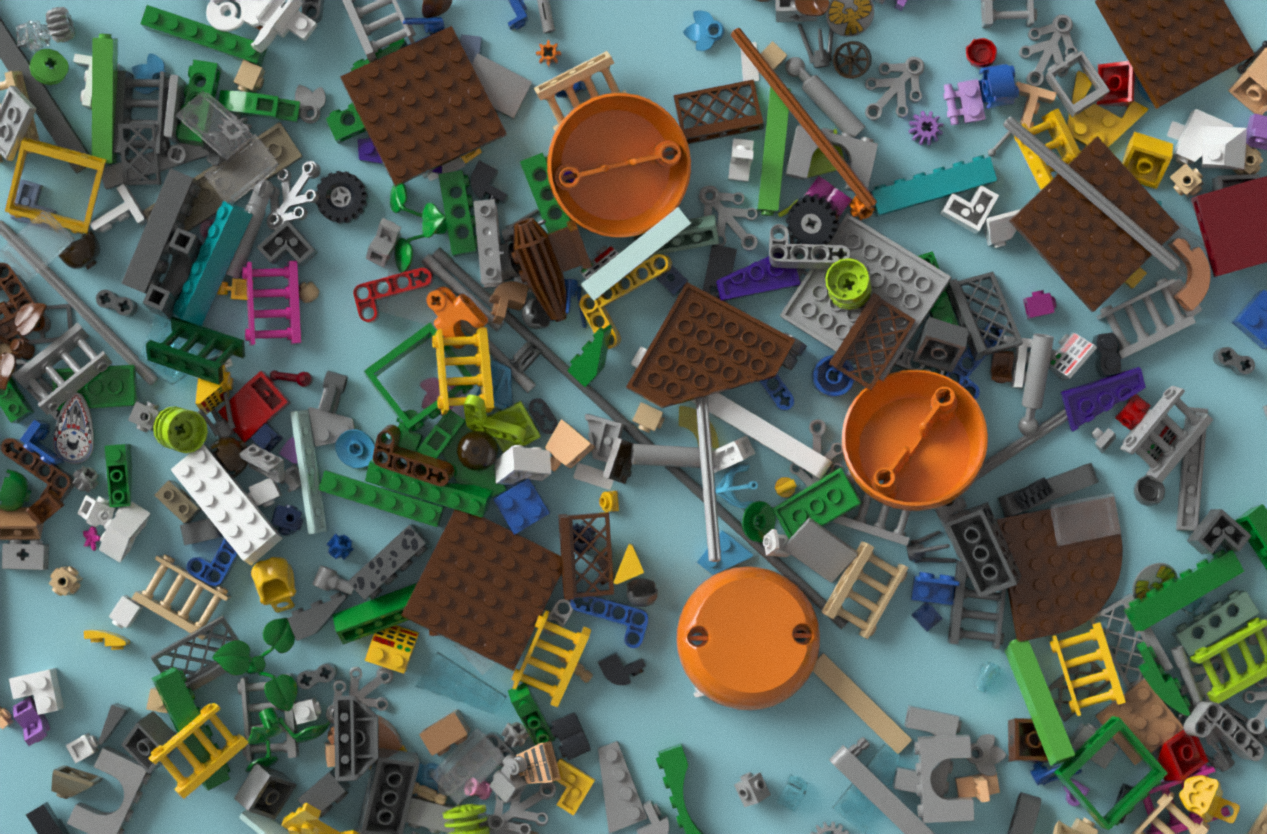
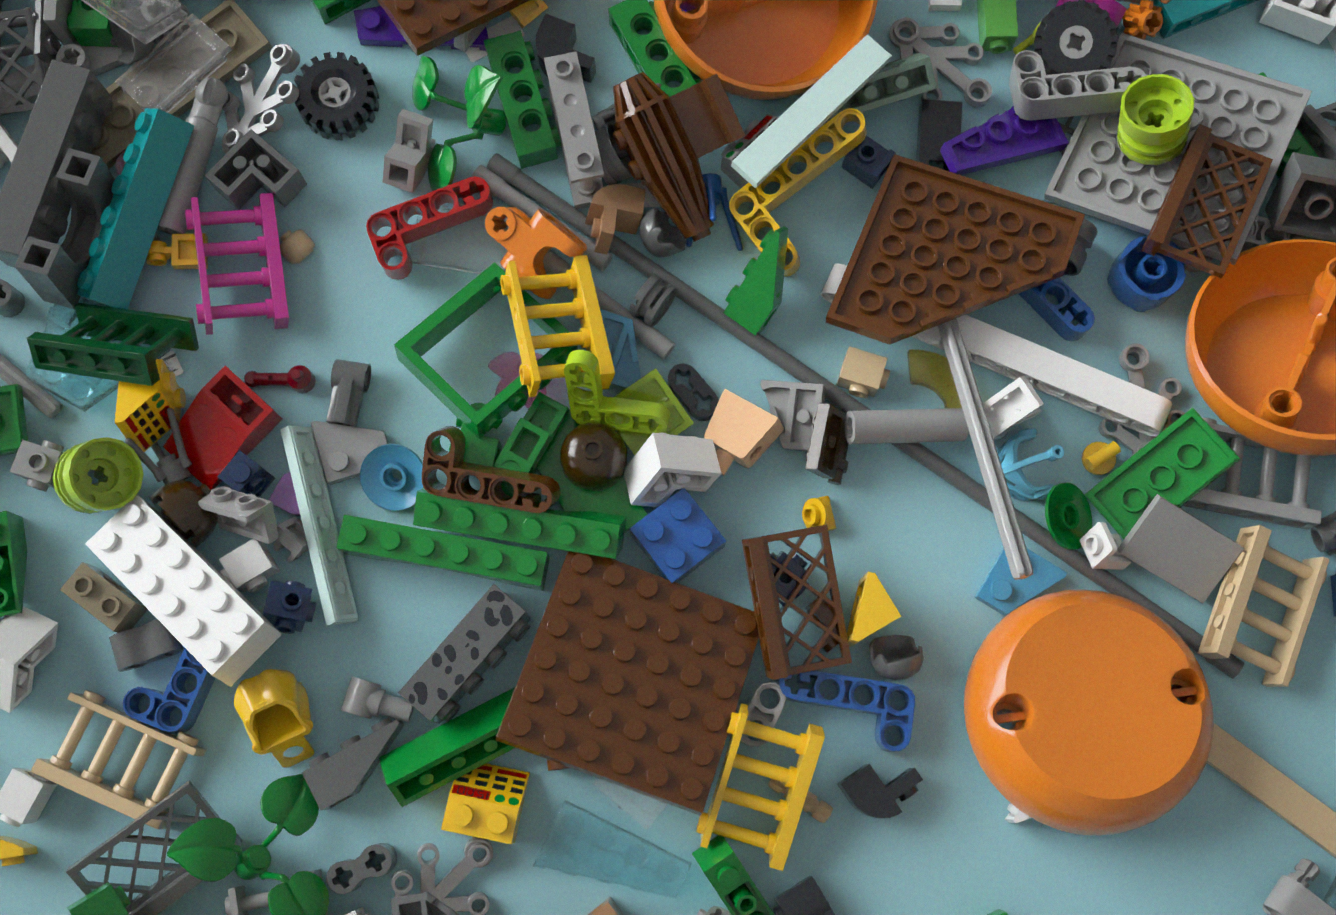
camera: 10 degrees left, 10 degrees down
(340, 546) = (381, 641): blue gear -> none
(592, 476) = (786, 479): white sticker -> none

